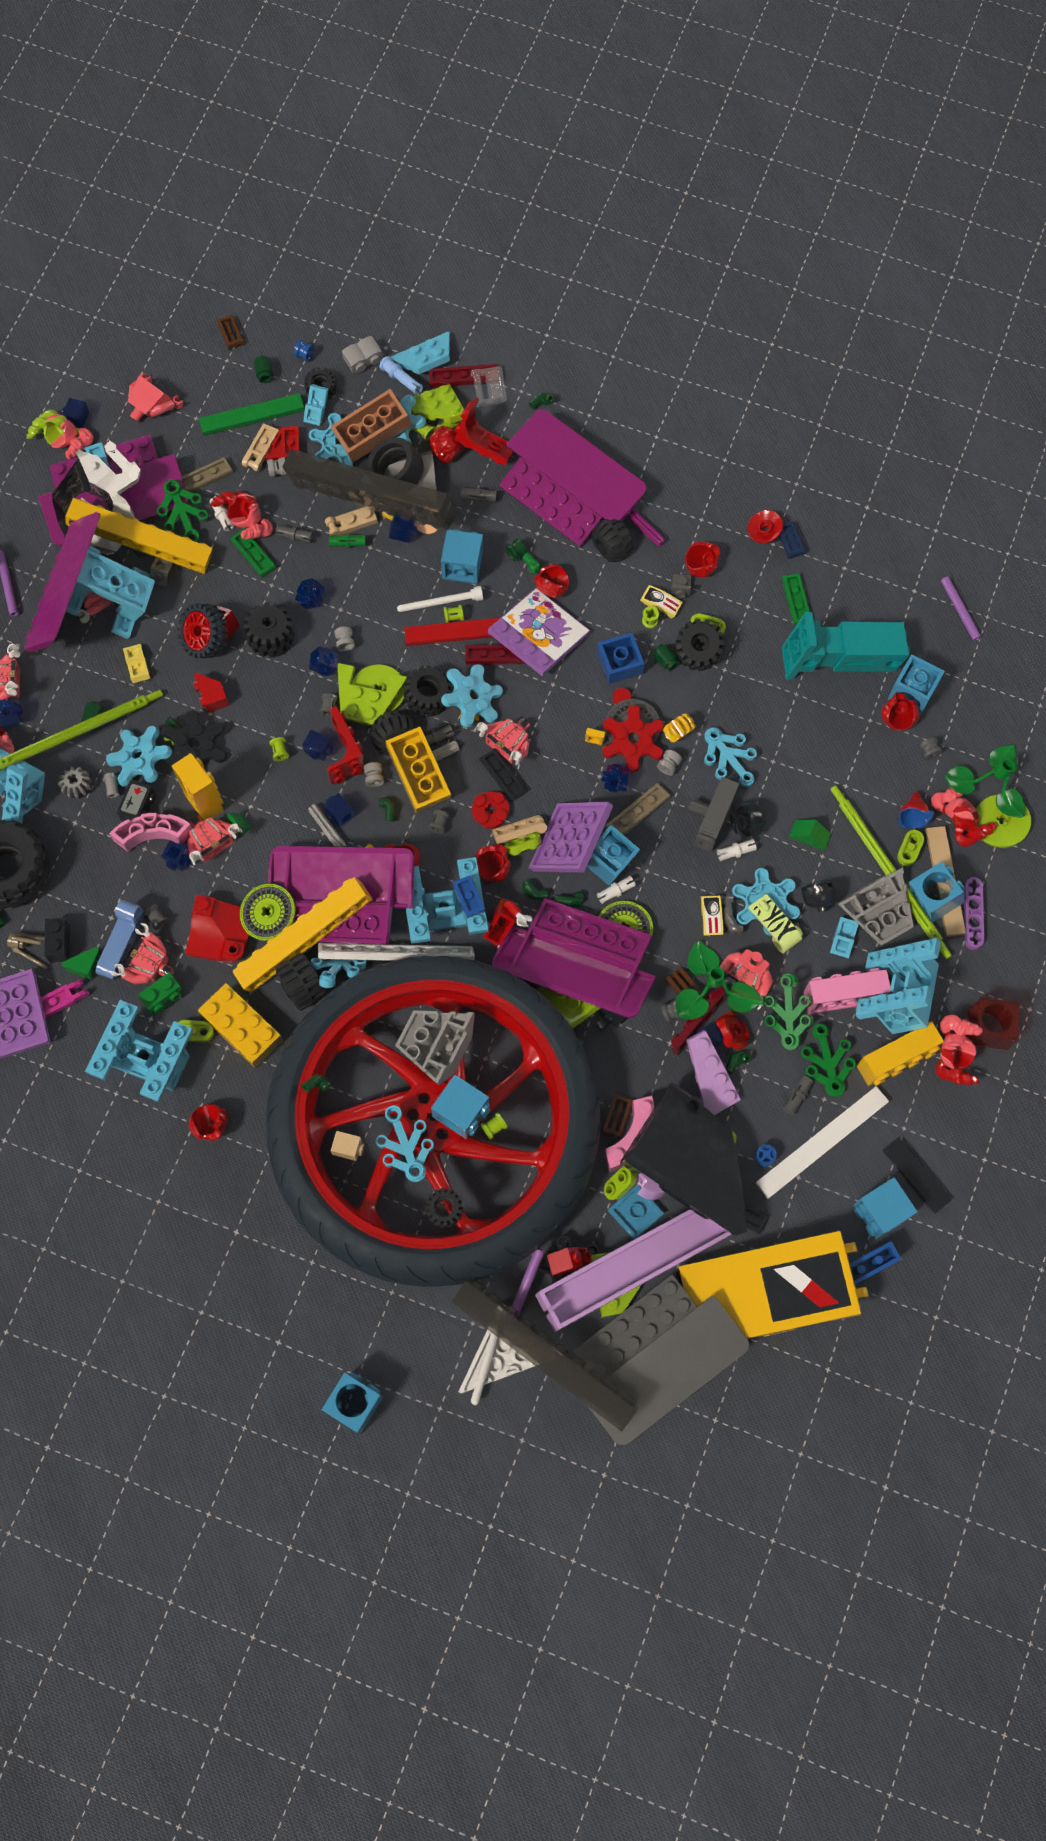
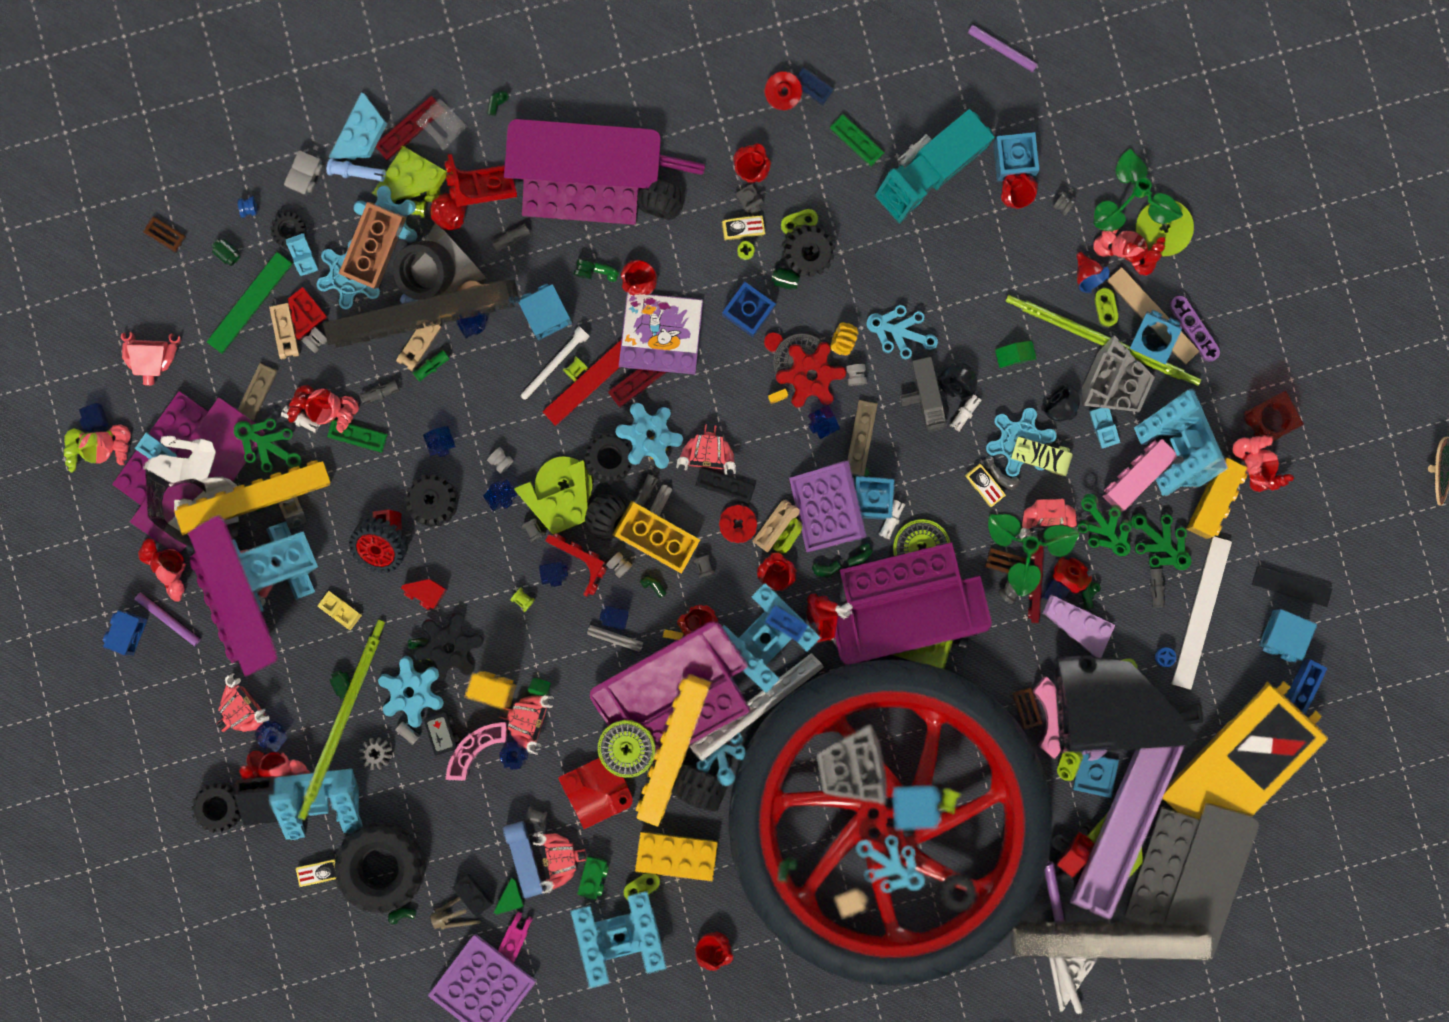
camera: 30 degrees left, 15 degrees up
(37, 542) = (159, 562): none -> hair

